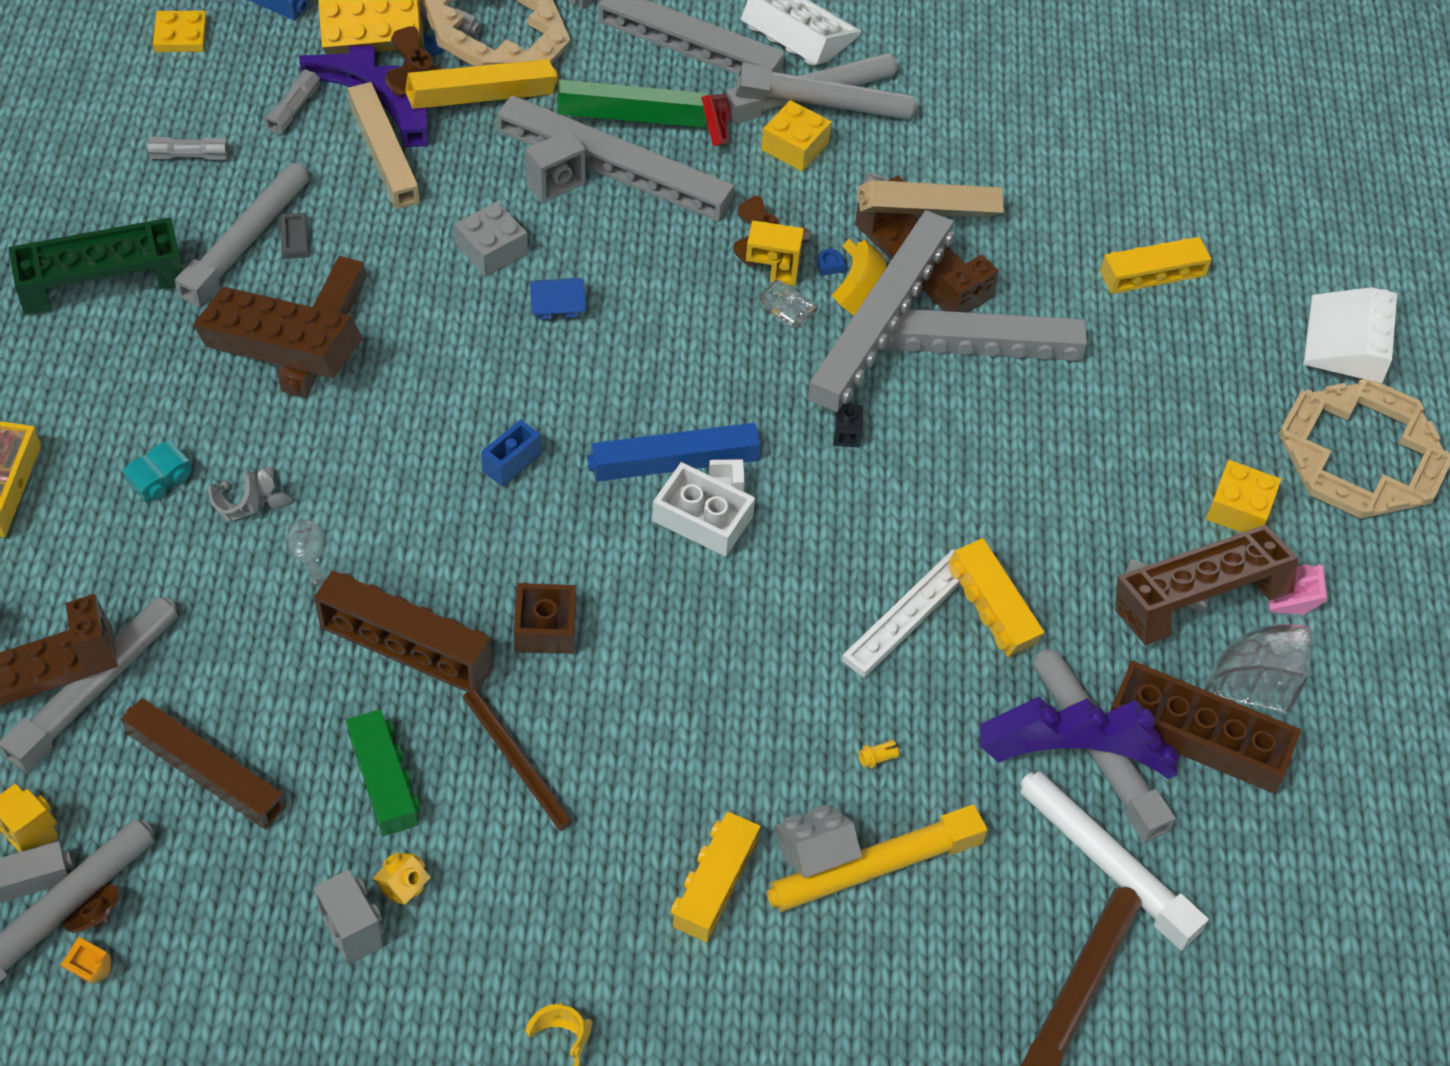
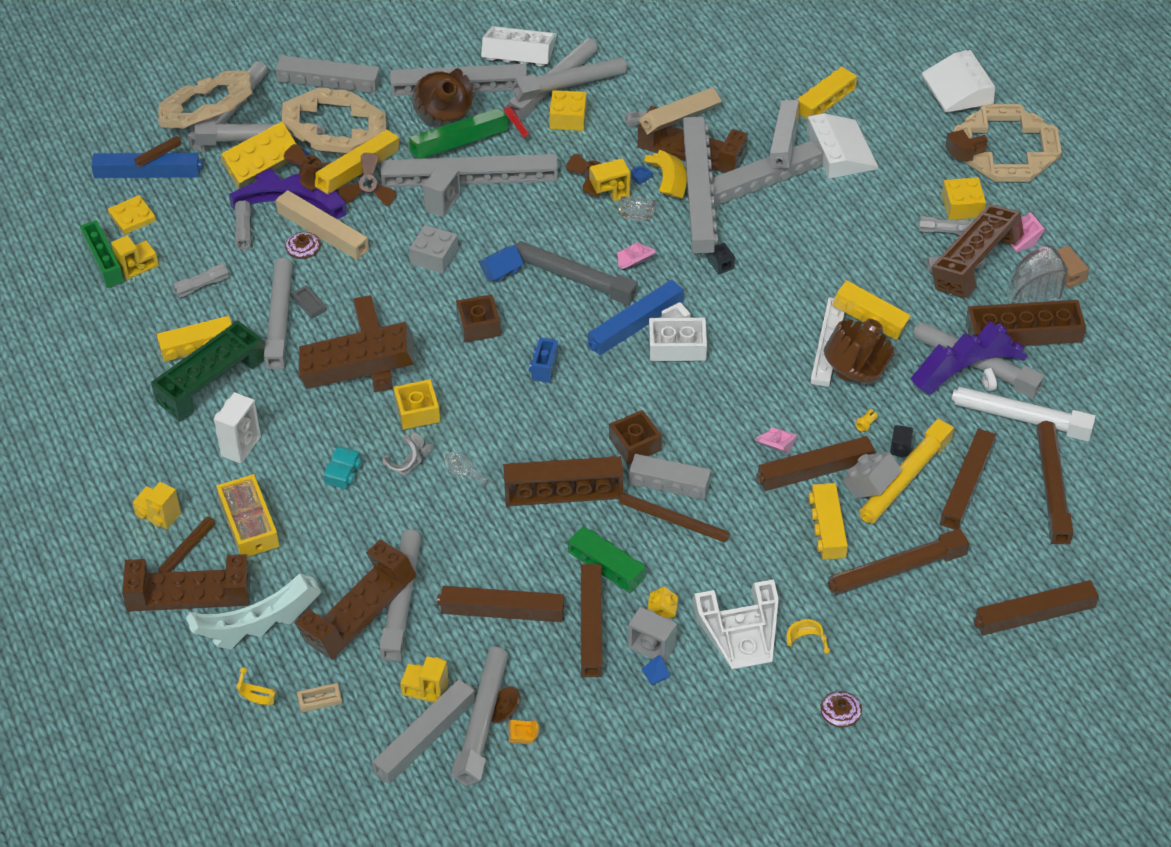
camera: 25 degrees left, 5 degrees down
(62, 355) = (237, 427): none -> white brick
(98, 212) = (185, 340): none -> yellow brick
(99, 62) = (101, 253): none -> green brick
(131, 86) = (134, 258): none -> yellow brick
(294, 849) = (591, 621): none -> reddish brown brick
(307, 433) = (416, 404): none -> yellow brick
(326, 970) = (656, 670): none -> blue slope
(346, 160) = (303, 245): none -> dish
(472, 355) = (478, 318): none -> reddish brown brick
(479, 980) = (741, 634): none -> white wedge
(487, 138) = (349, 192): none -> reddish brown piece
(552, 698) = (669, 476): none -> light grey brick
(642, 48) = (442, 97): none -> reddish brown piece
(683, 399) = (620, 287): none -> dark grey brick
(735, 720) = (777, 440): none -> bright pink slope
(737, 366) = (634, 255): none -> bright pink slope
(758, 780) = (813, 463): none -> reddish brown brick
(856, 1006) = (947, 547): none -> reddish brown brick
(901, 810) = (901, 441): none -> black brick
(925, 649) = (858, 351): none -> reddish brown piece
(957, 918) = (967, 479): none -> reddish brown brick
(1051, 294) = (785, 134): none -> light grey brick
(1093, 783) = (989, 380): none -> white tile
(1126, 344) = (841, 144): none -> white slope
(1175, 516) = (932, 224): none -> light grey axle
(1290, 426) = (964, 148): none -> reddish brown brick
(1329, 672) = (1077, 270): none -> medium nougat brick

